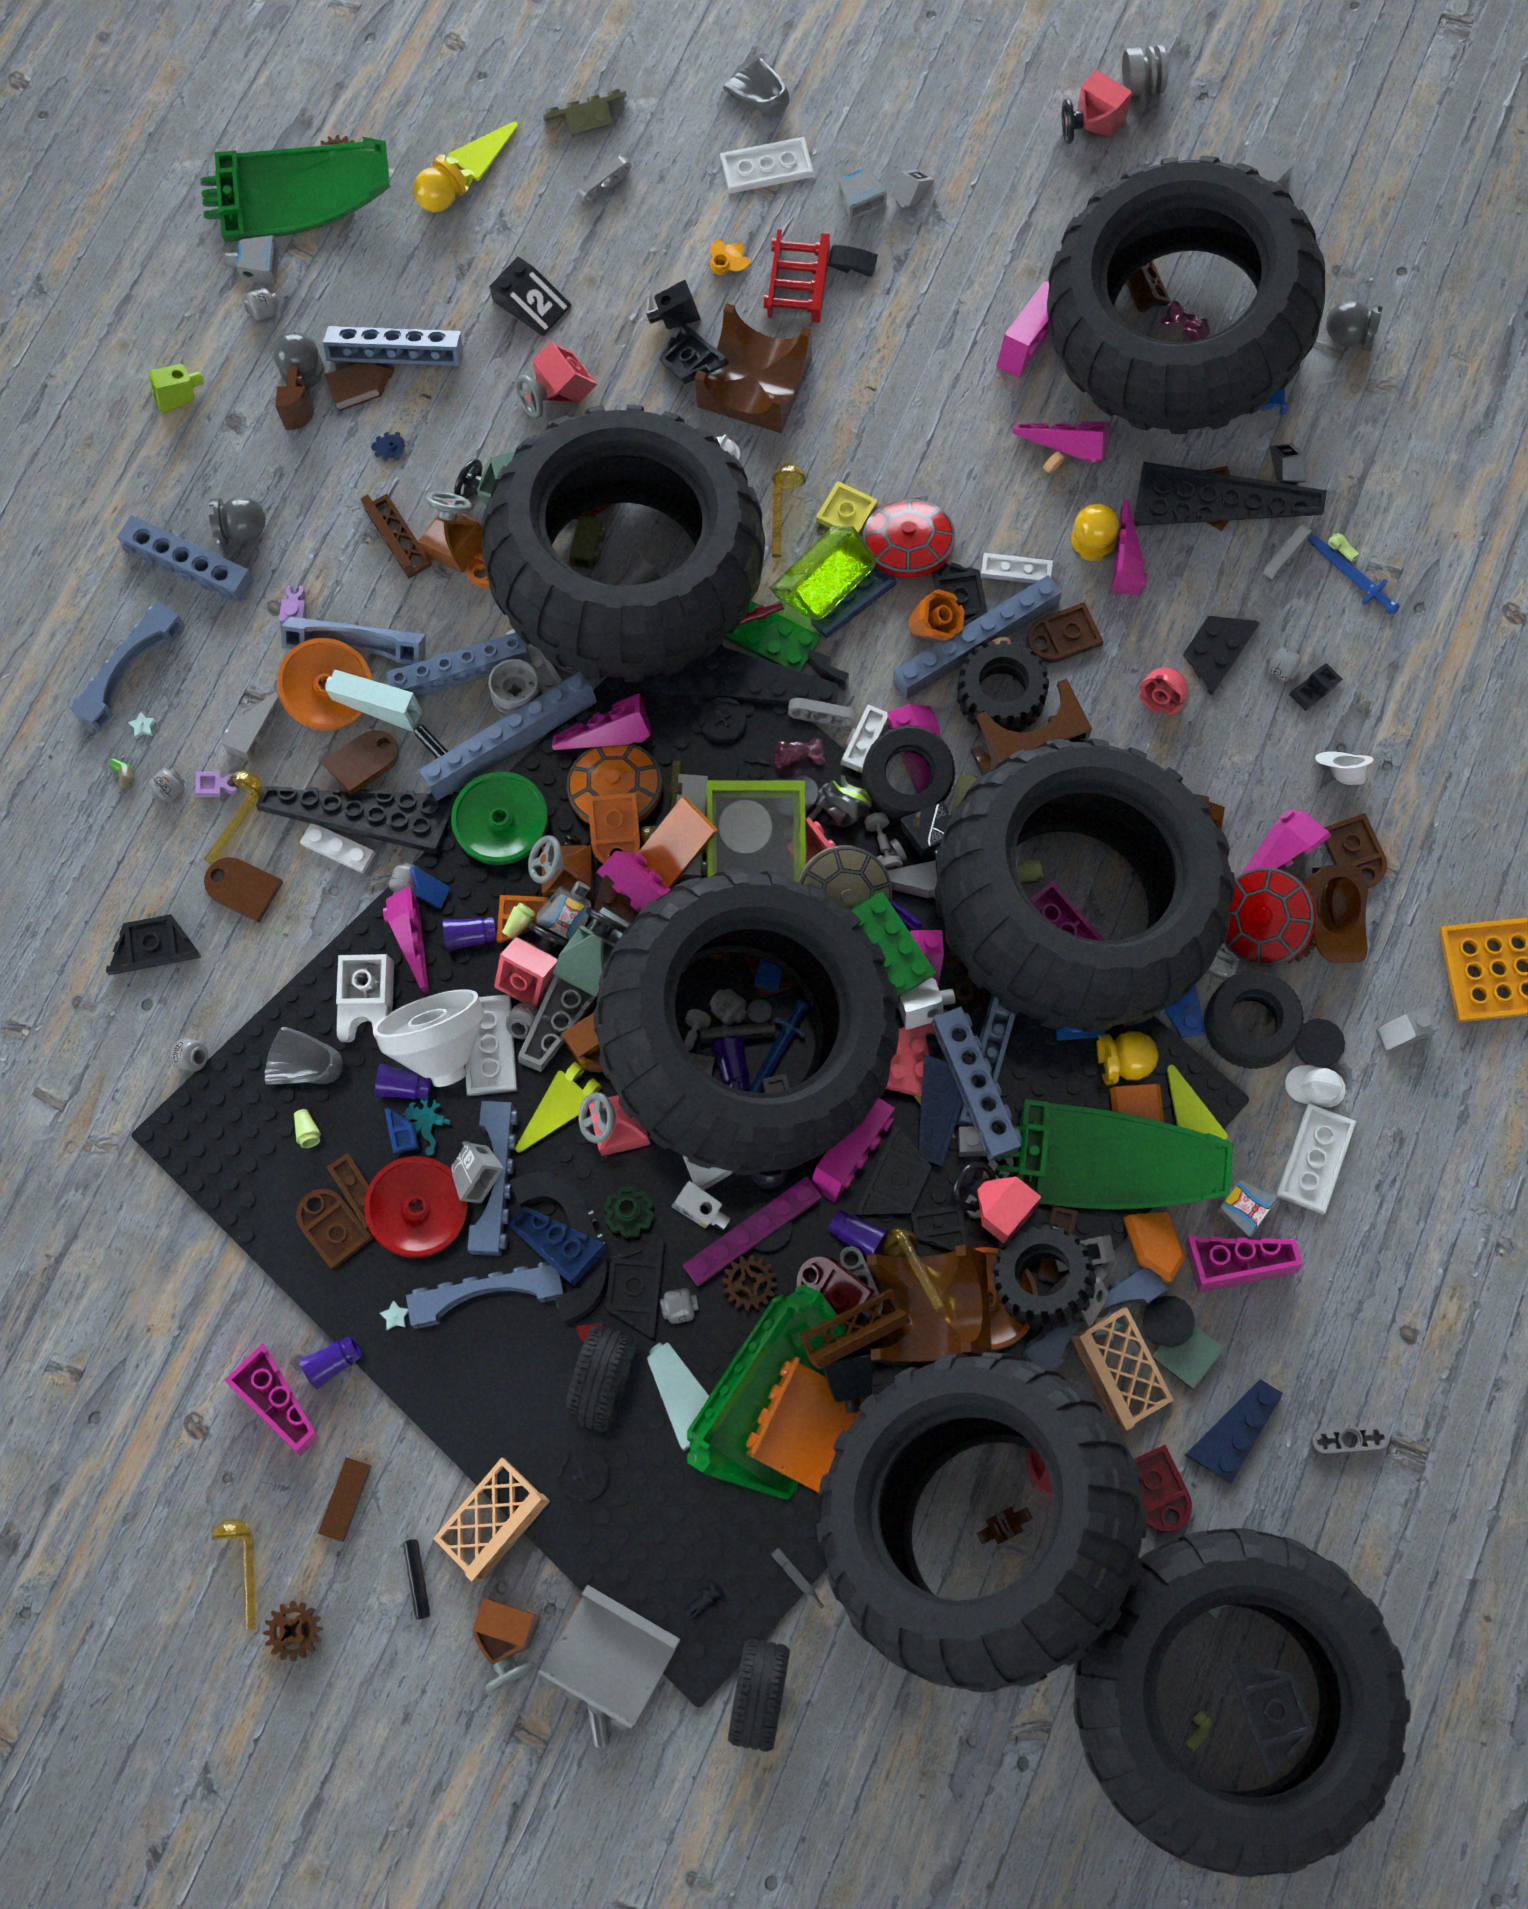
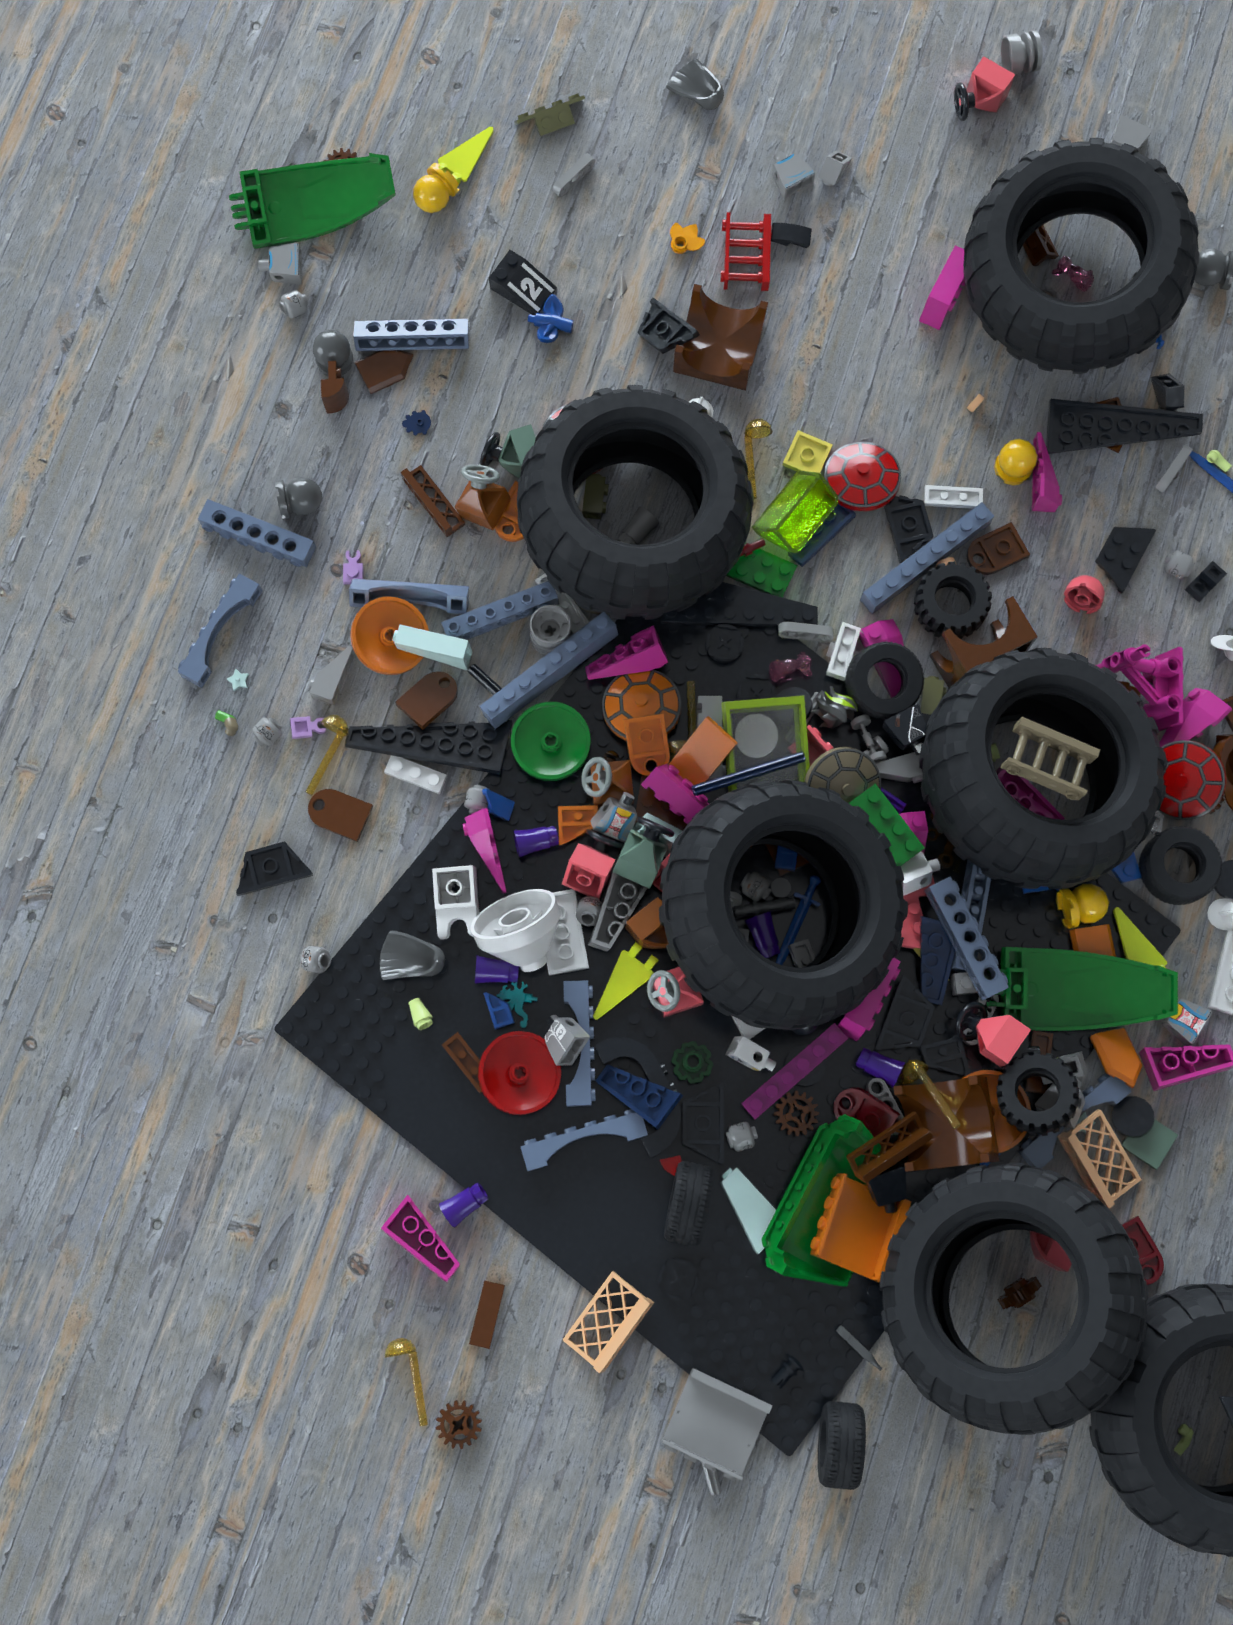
camera: 10 degrees left, 5 degrees up
(173, 386) = (228, 382): lime torso -> none
(333, 1228) = (451, 1094): reddish brown tile -> none
(395, 1316) = (511, 1162): light aqua piece -> none
(416, 1579) = (552, 1373): black axle -> none
(501, 1634) = (629, 1413): dark orange piece -> none
(518, 920) = (576, 827): yellowish green cone -> none
(558, 379) = (556, 356): coral piece -> none
(562, 334) = (551, 320): none -> blue plant
(674, 306) = (646, 286): black torso -> none
(747, 865) = (748, 773): none -> dark blue axle
(766, 165) = (709, 153): white tile -> none
(822, 666) = (800, 589): black slope -> none
(937, 617) = (894, 545): orange cone -> none
(1082, 441) = (997, 382): dark pink wedge -> none
(1092, 842) = (1063, 744): none -> dark tan fence
(1235, 1433) = (1191, 1204): dark blue wing -> none
(1250, 789) = (1164, 672): none -> dark pink plate

